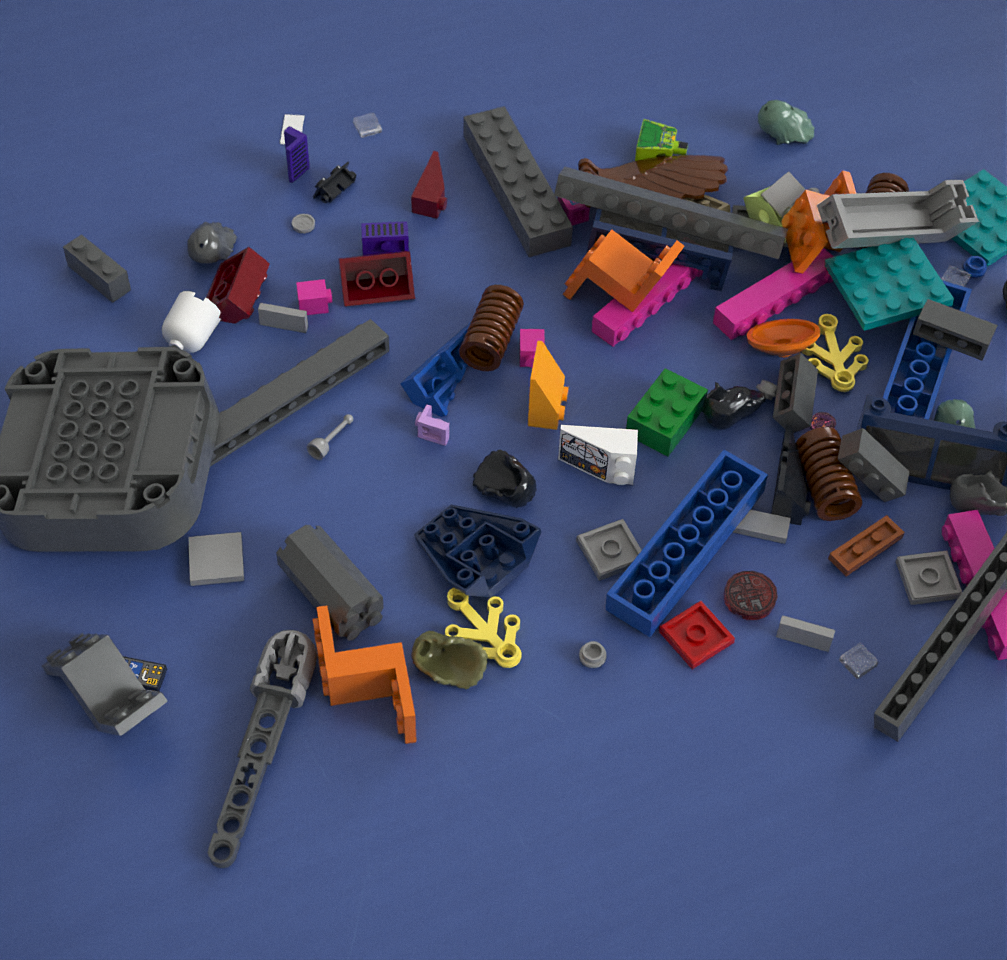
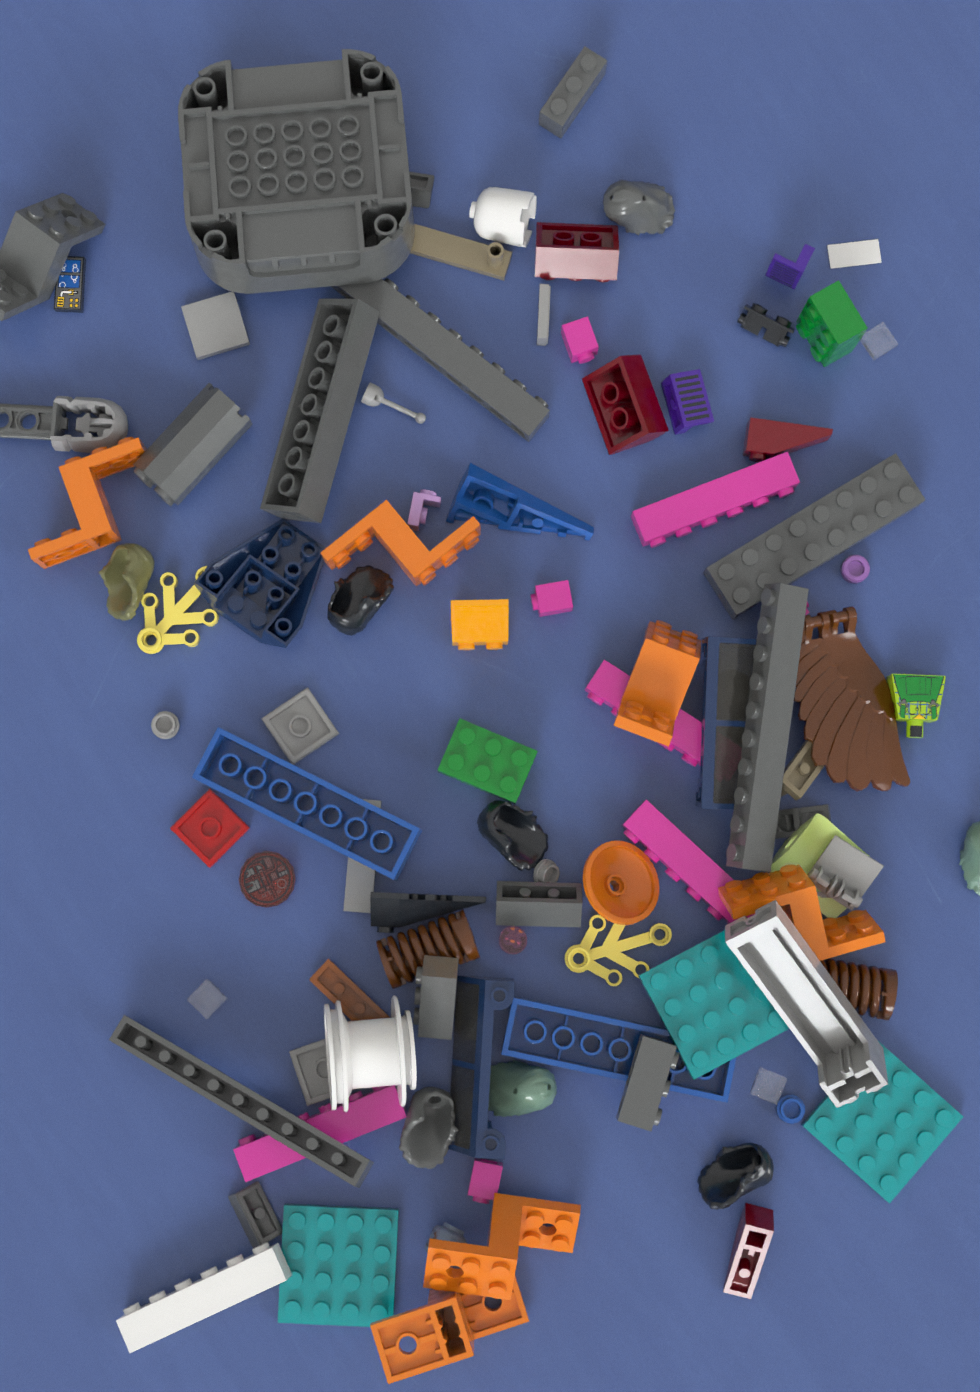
camera: 80 degrees right, 30 degrees up
(219, 352) = (461, 252): none -> dark tan piece
(303, 223) = (700, 303): light grey piece -> none
(325, 476) = (320, 410): none -> dark grey brick
(352, 131) = (830, 324): none -> green brick
(462, 436) = (401, 544): none -> orange bracket
(471, 234) = (715, 499): none -> dark pink brick
(491, 328) = (563, 546): reddish brown piece -> none
(547, 165) = (855, 569): none -> medium lavender tile
(600, 452) = (406, 706): white slope -> none
(805, 633) = (224, 940): light grey tile -> none
(923, 515) = (369, 1053): none -> white wheel

